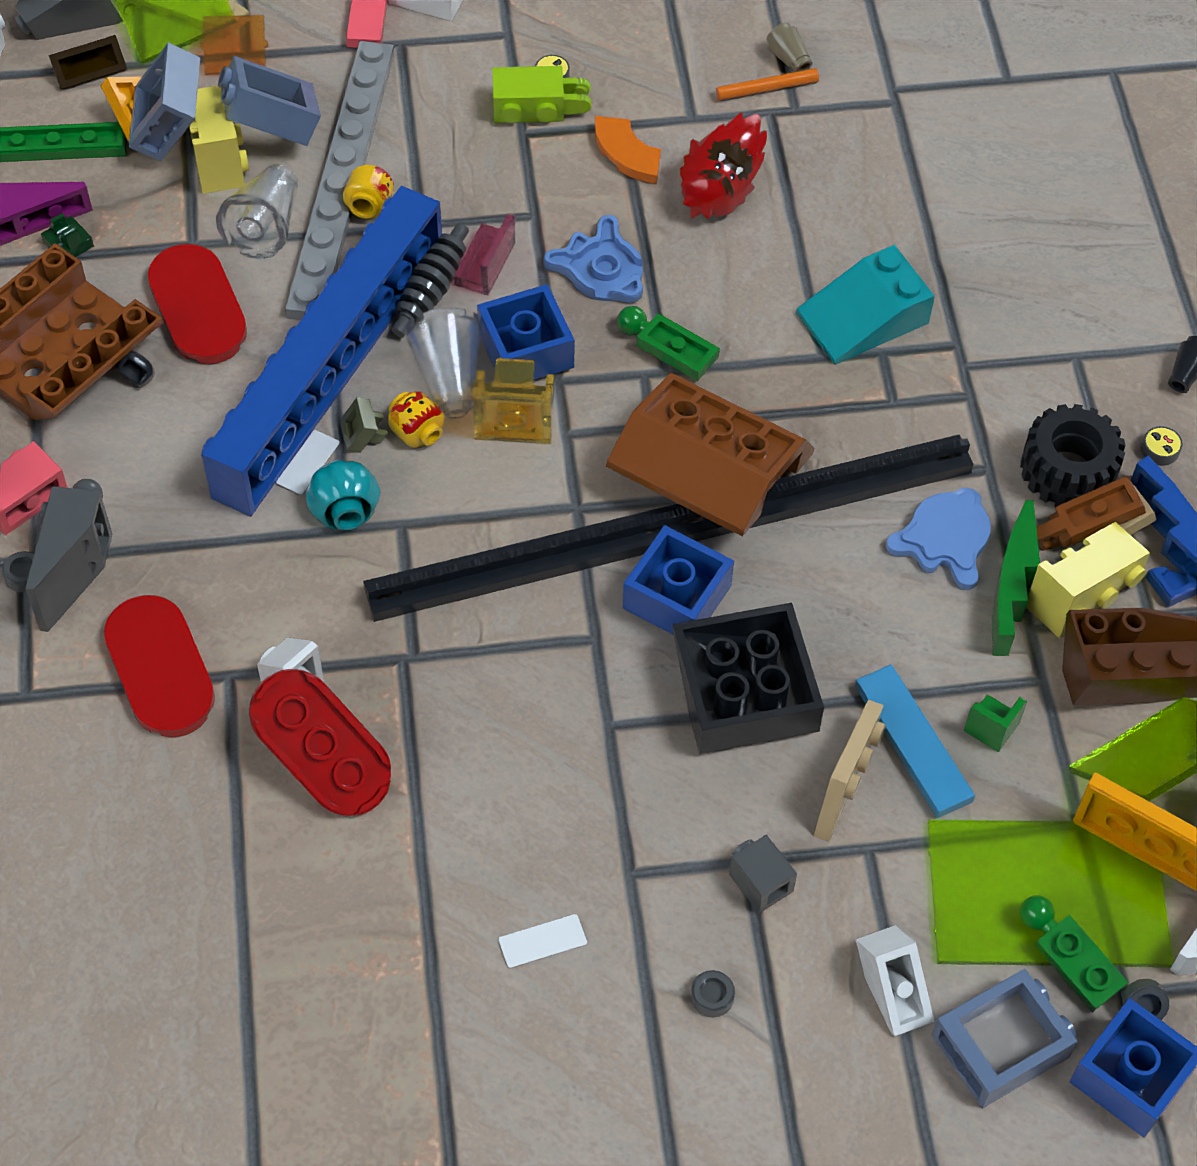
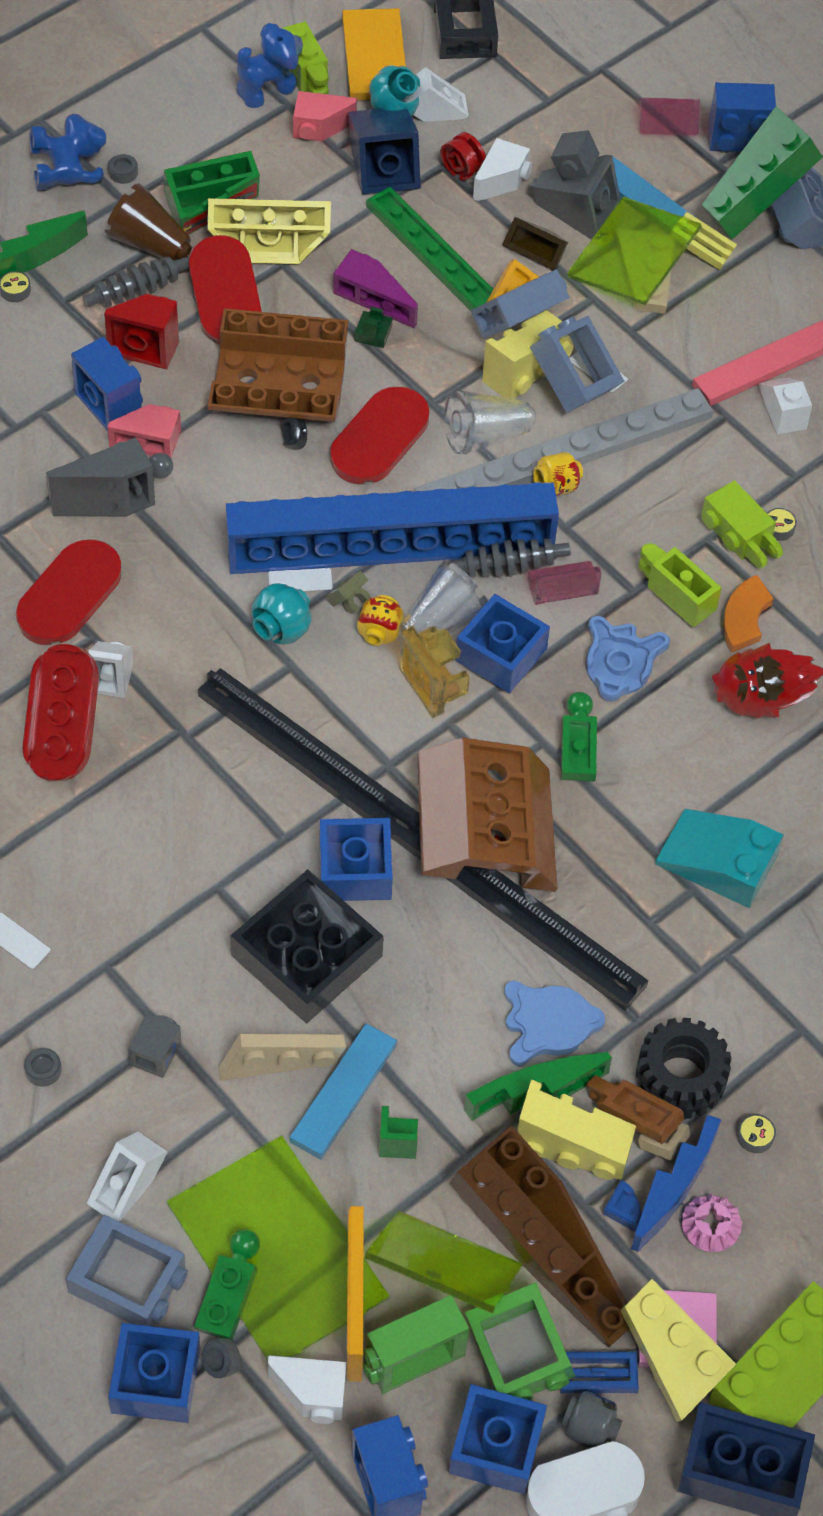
camera: 55 degrees right, 0 degrees up
(231, 37) = (625, 316): clear orange piece -> none
(564, 170) = (679, 583): none -> lime hinge

